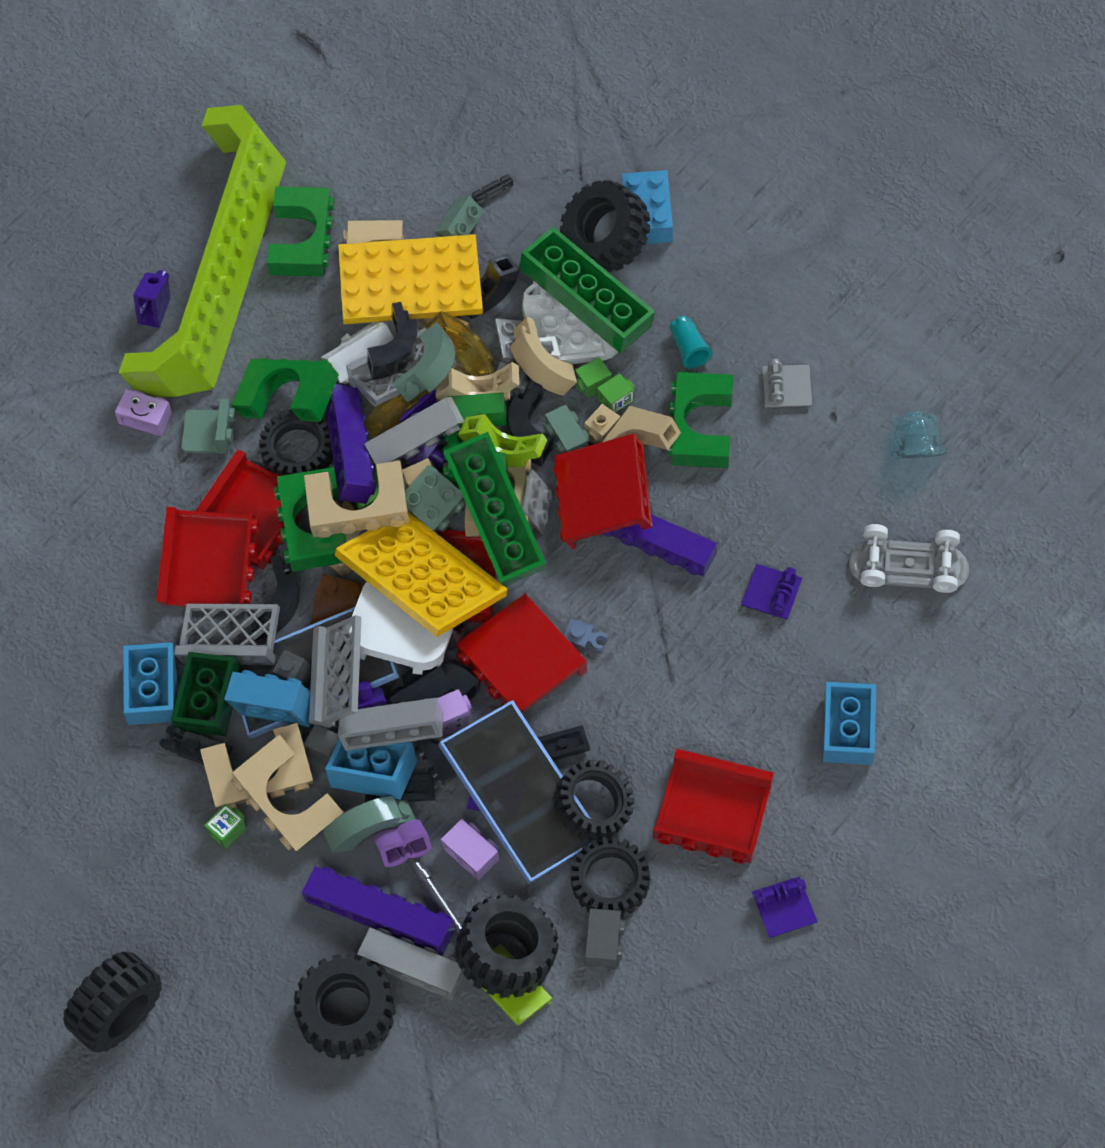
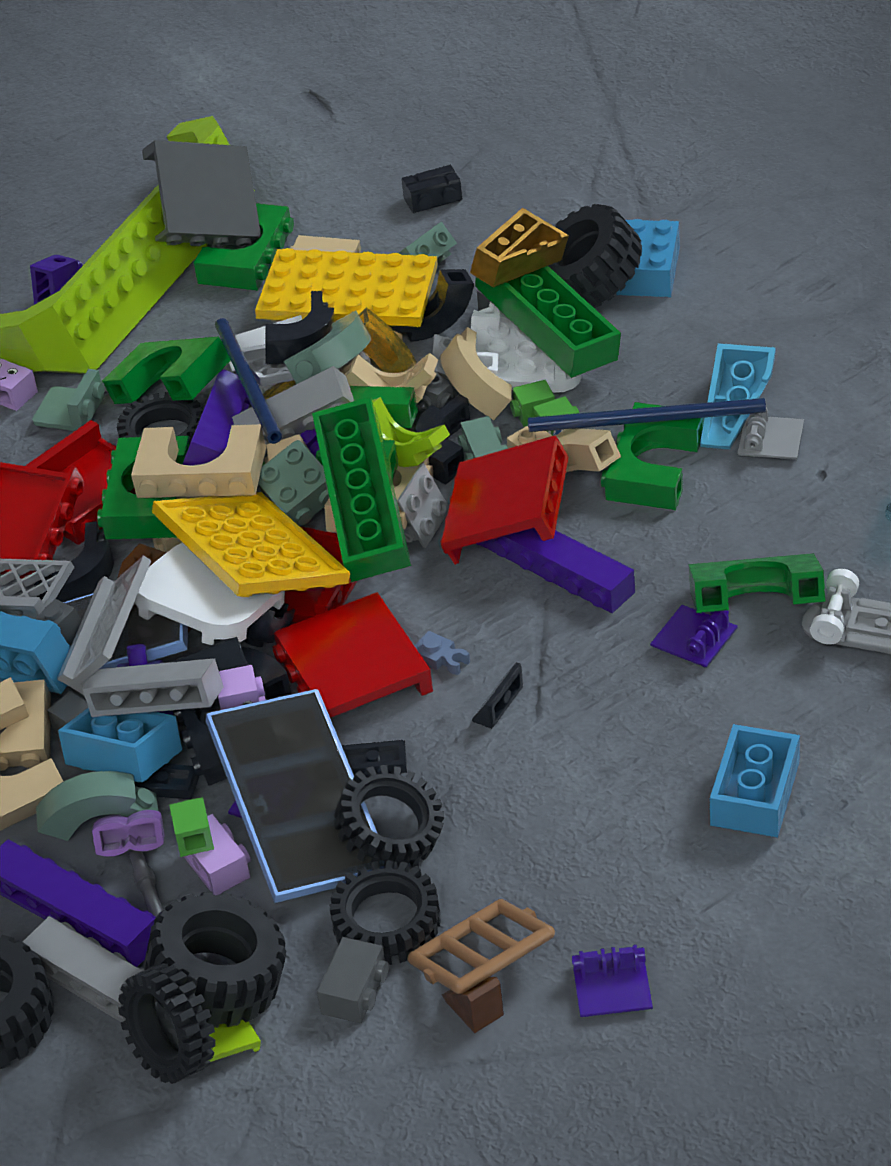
camera: 15 degrees right, 20 degrees down
(264, 197) = (205, 193): none -> dark grey panel
(369, 408) = (248, 381): none -> dark blue piece
(443, 147) = (431, 188): none -> black brick
(454, 837) = (191, 827): none -> bright green brick
(492, 189) = (475, 230): black axle -> none
(502, 995) = (186, 1014): none -> black tyre
(557, 243) = (518, 248): none -> pearl gold wedge
(640, 672) = (500, 698): none -> black slope
(691, 345) = (661, 381): teal plant -> none
(691, 389) = (646, 415): none -> dark blue piece
(693, 938) = (478, 1005): none -> reddish brown slope
(700, 918) = (483, 967): none -> medium nougat bar
(713, 806) = (550, 852): red panel -> none
(752, 345) = (737, 374): none -> medium azure wedge
(834, 526) = (793, 575): none -> green arch

